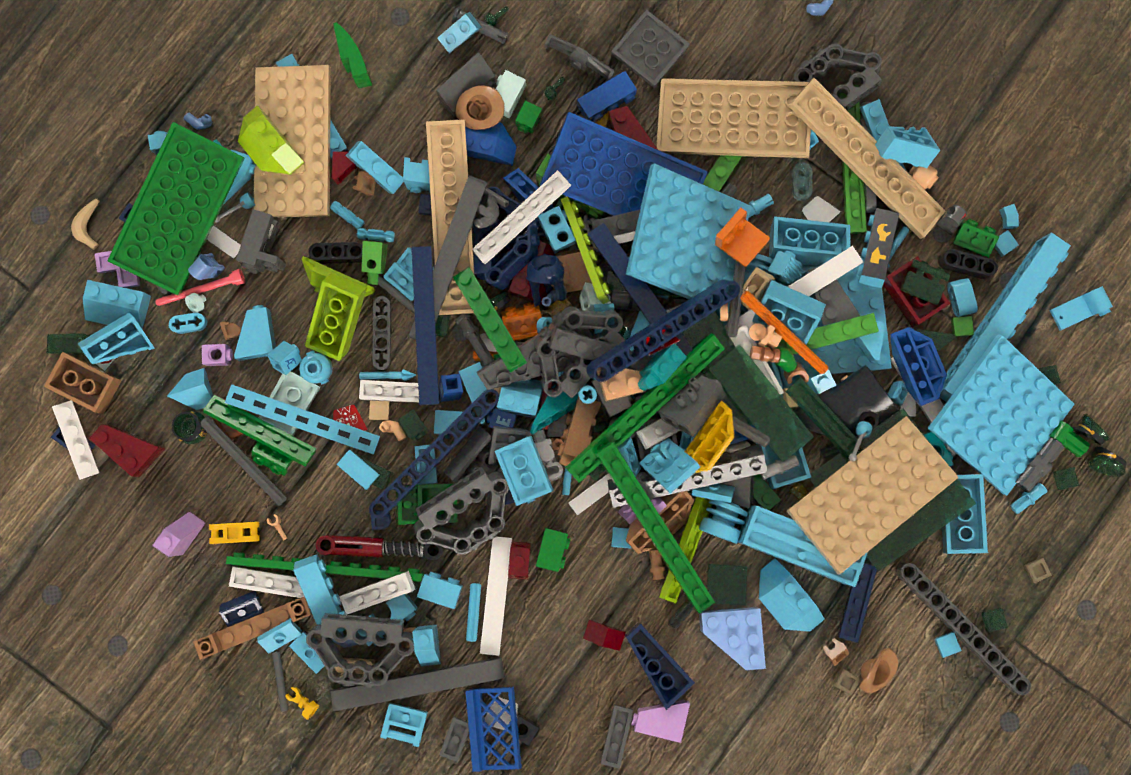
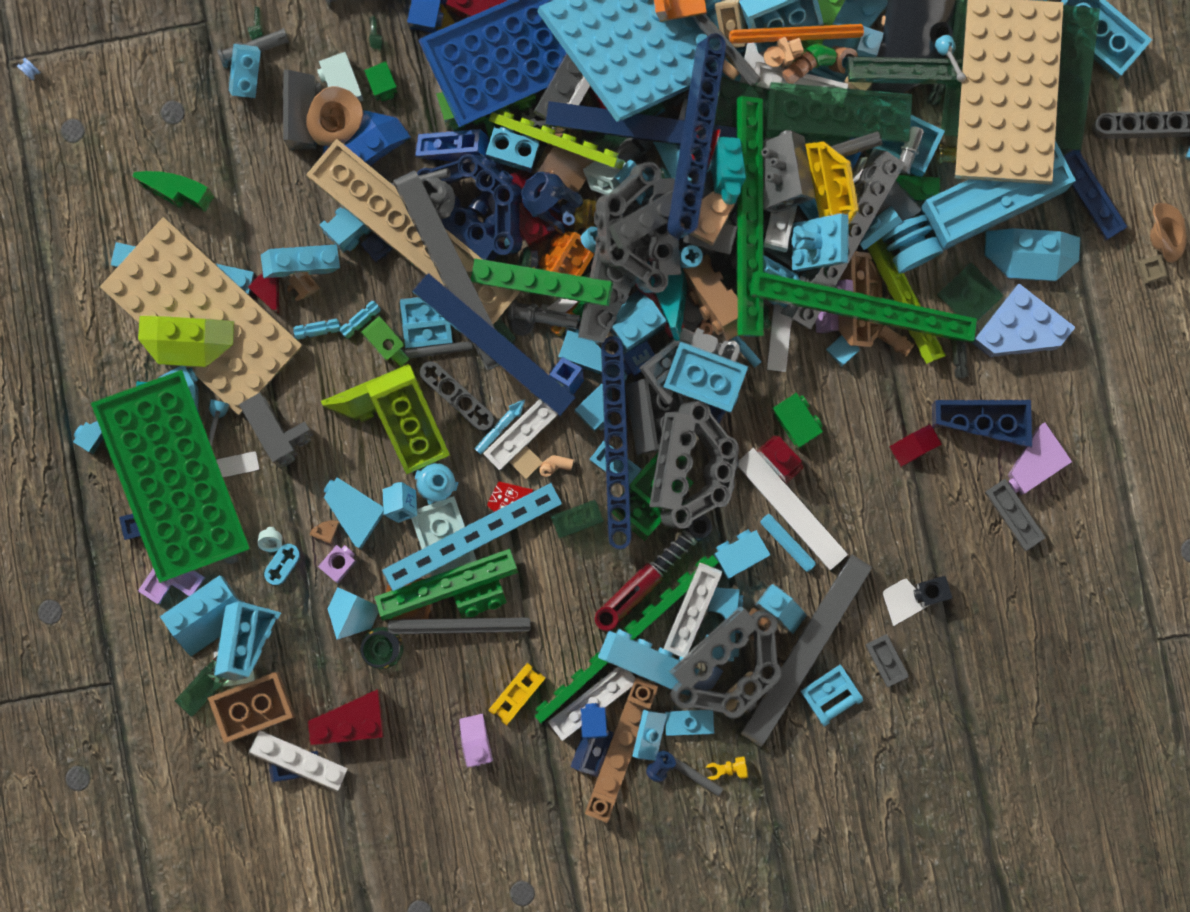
camera: 45 degrees left, 0 degrees up
(79, 224) = (95, 581): tan piece -> none
(200, 123) = (101, 387): medium blue arm -> none
(205, 267) = (248, 499): medium blue piece -> none
(236, 277) = (280, 483): coral piece -> none
(254, 595) = (593, 721): none -> blue brick
(267, 663) = (661, 766): none -> dark blue bush
(277, 525) = (545, 649): light nougat hand -> none
(329, 249) = (347, 356): black beam -> none
(358, 469) = (566, 525): medium azure tile -> none
(380, 523) = (629, 554): dark blue tile -> none
(413, 425) = (569, 443): clear green brick -> none
(477, 729) = (895, 631): blue fence -> none
(521, 217) = (474, 169): white tile -> none
(838, 653) = (1120, 255): tile -> none

